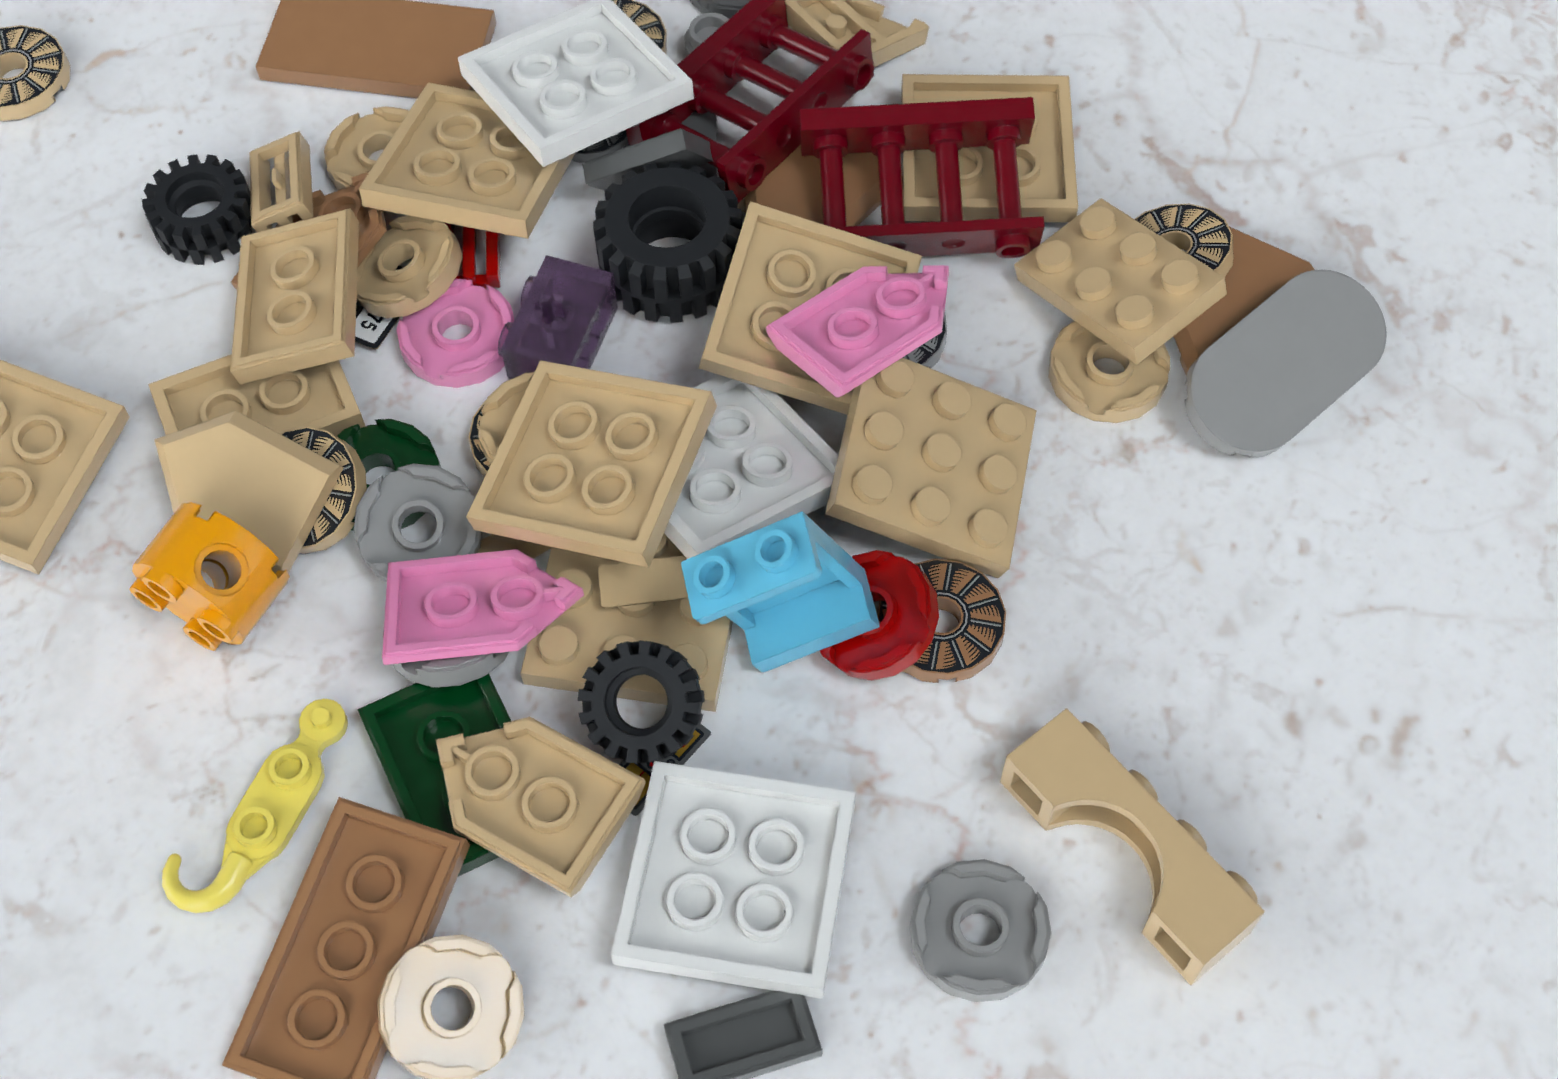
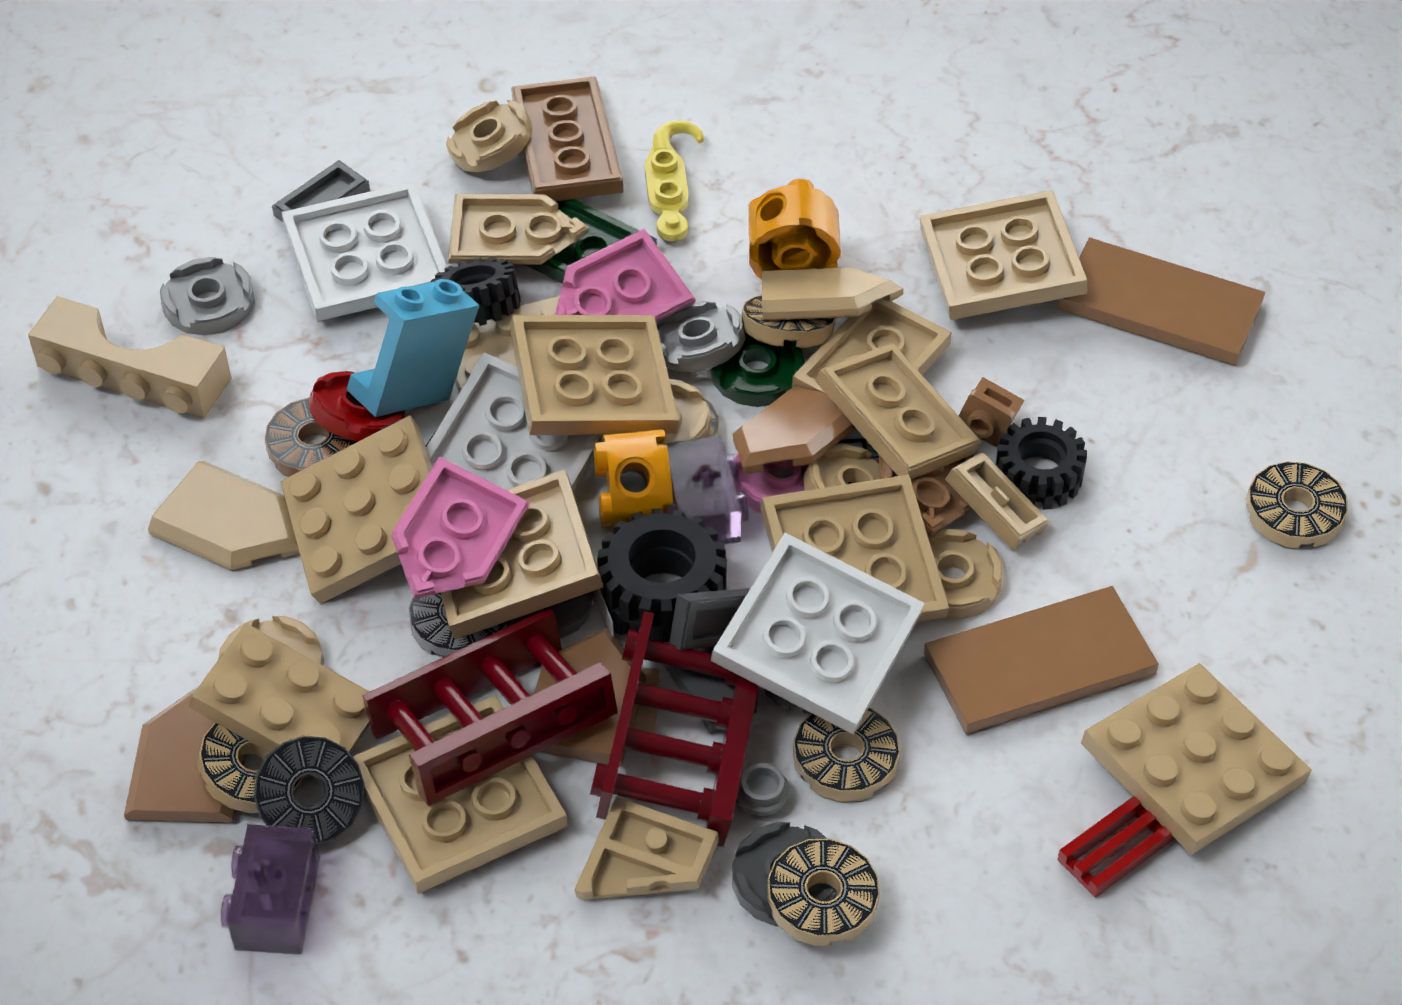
camera: 150 degrees right, 10 degrees down
(201, 277) = (990, 411): none -> medium nougat bracket
(421, 342) = (792, 428): none -> medium nougat tile
(631, 328) = (638, 454): none -> light orange brick
(1088, 566) = (225, 518): none -> tan tile
(1130, 184) = (317, 757): none -> tile
(1200, 129) = (271, 889): none -> clear purple brick
(1285, 363) = (124, 710): light grey tile -> none

